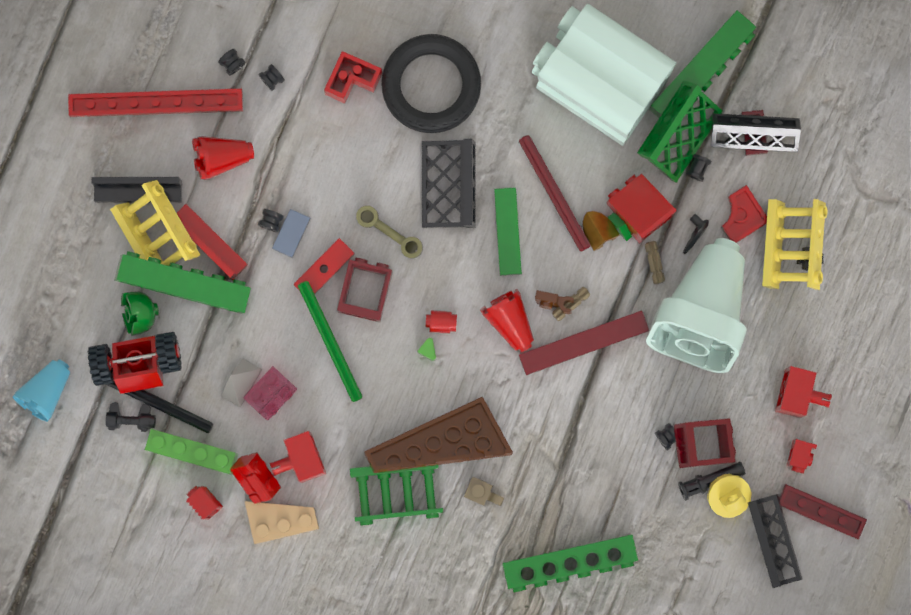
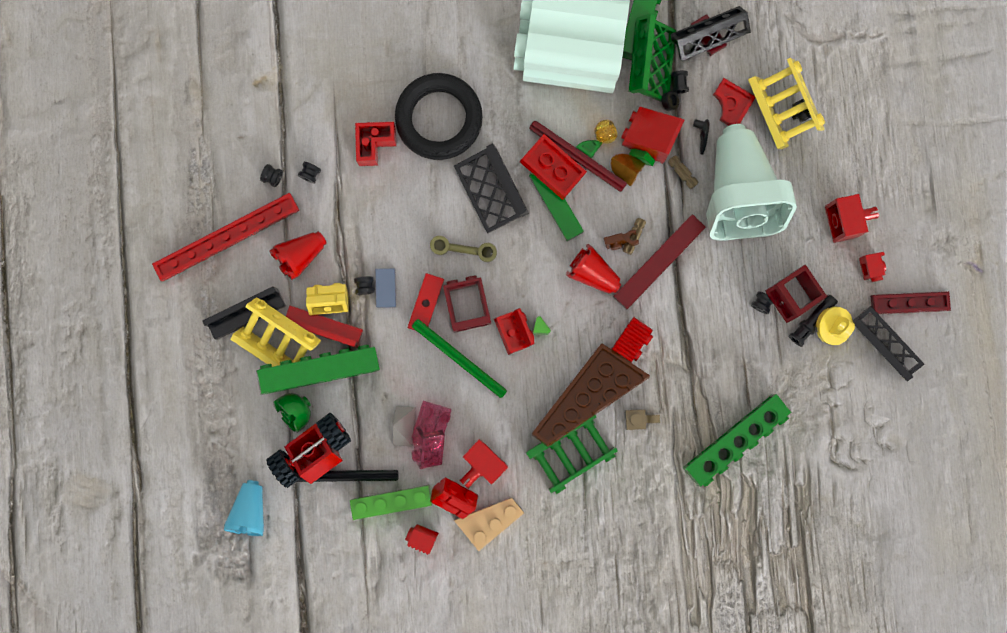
camera: 30 degrees left, 0 degrees up
(143, 421) = (340, 496): black piece -> none
(226, 216) = (327, 299): none -> light yellow brick
(254, 415) = (428, 448): none -> clear pink bracket
(399, 341) = (514, 331): none -> red bracket
(441, 321) = (540, 299): red brick -> none
(514, 409) = (632, 340): none -> red brick
(522, 192) = (553, 166): none -> red plate
(570, 190) = (589, 147): none -> green tile
(595, 182) = (605, 131): none -> clear yellow piece
(678, 182) = (670, 100): none -> black tile

